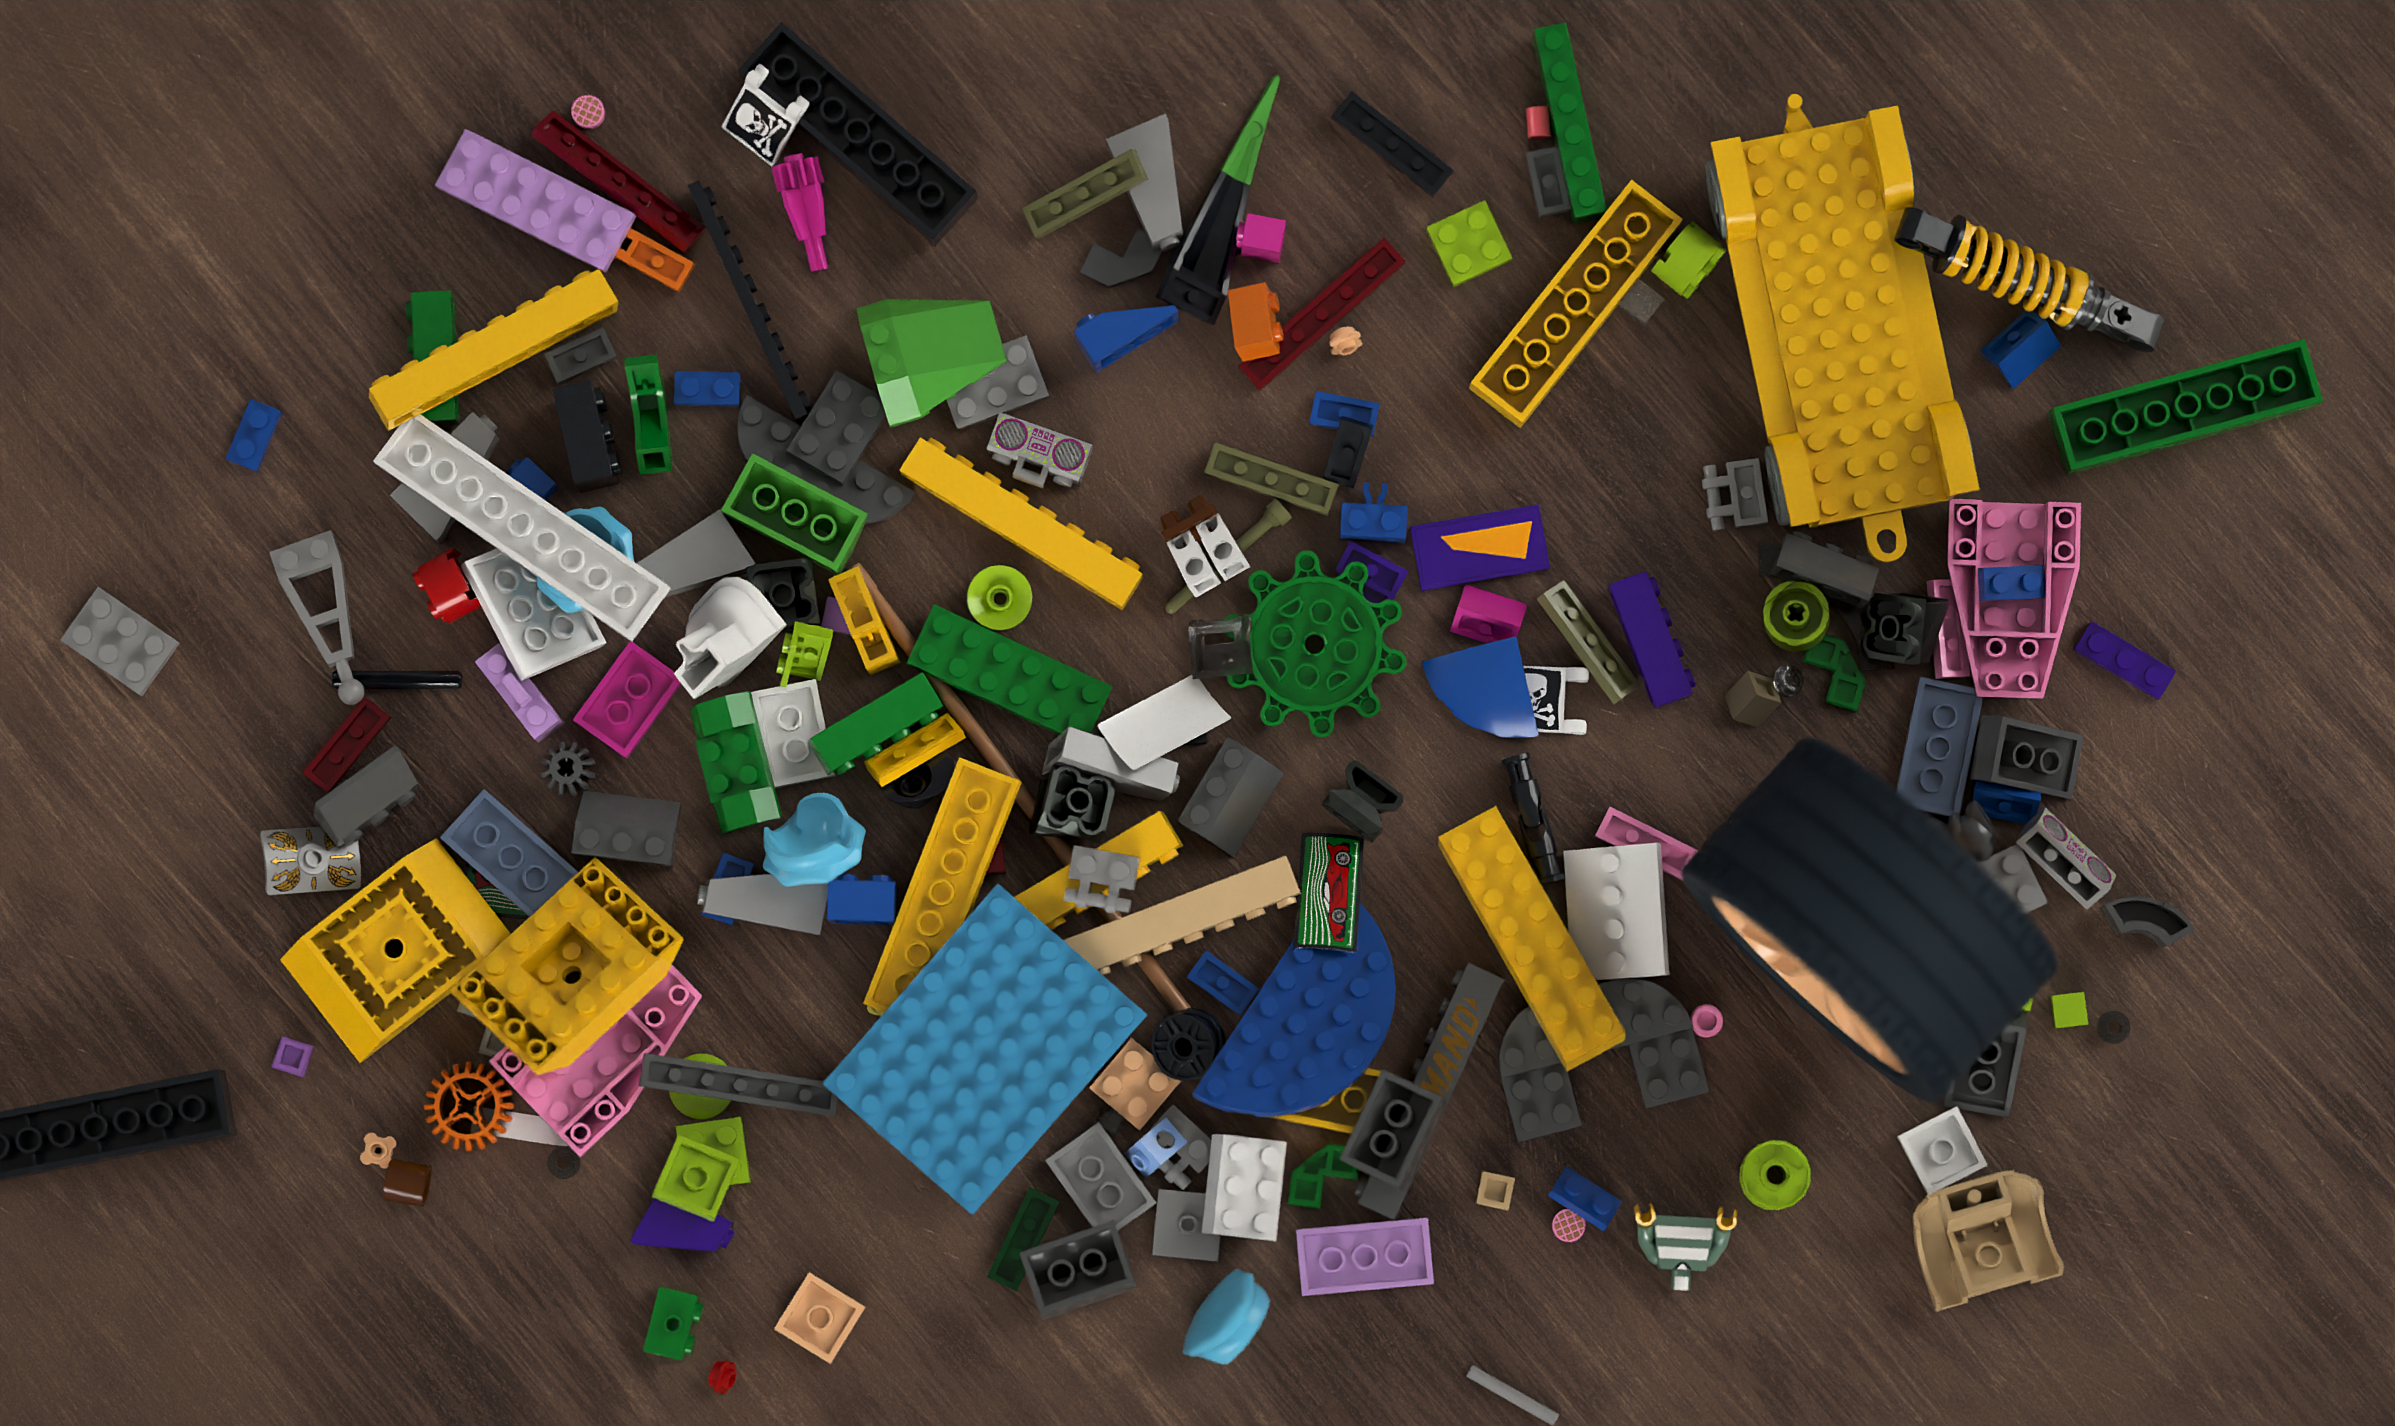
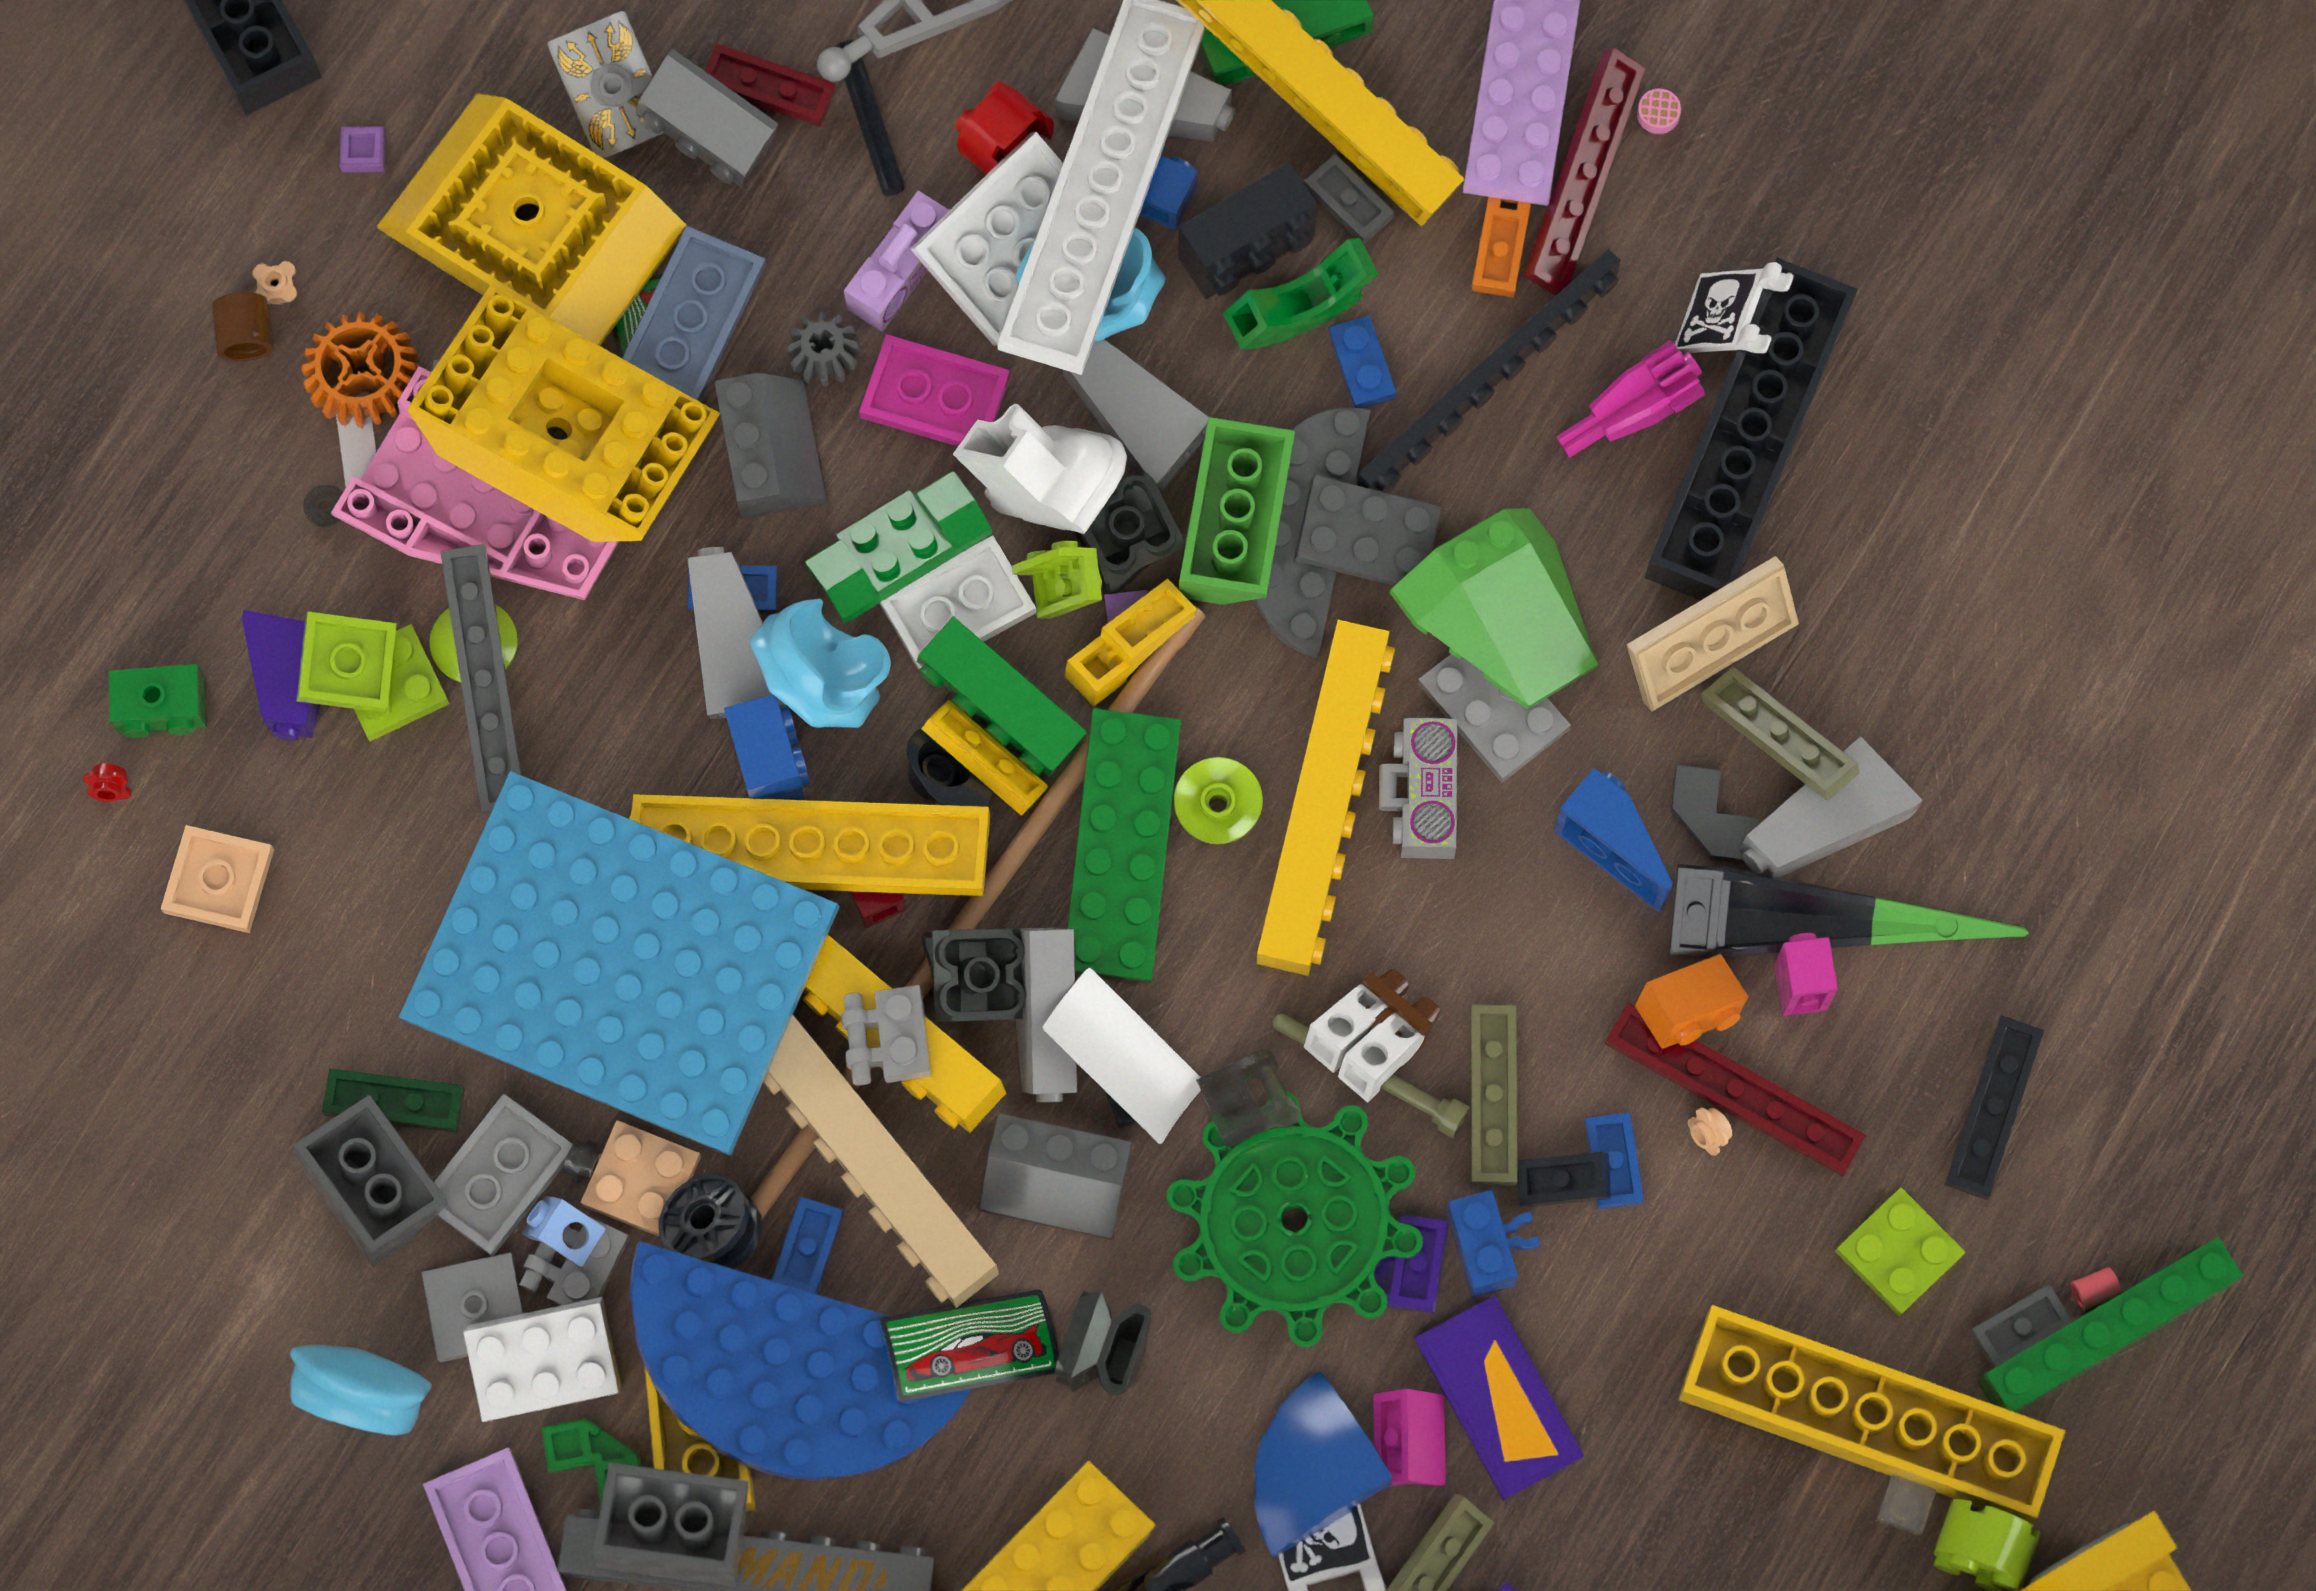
camera: 70 degrees right, 10 degrees down
(998, 213) = (1713, 633): none -> tan tile

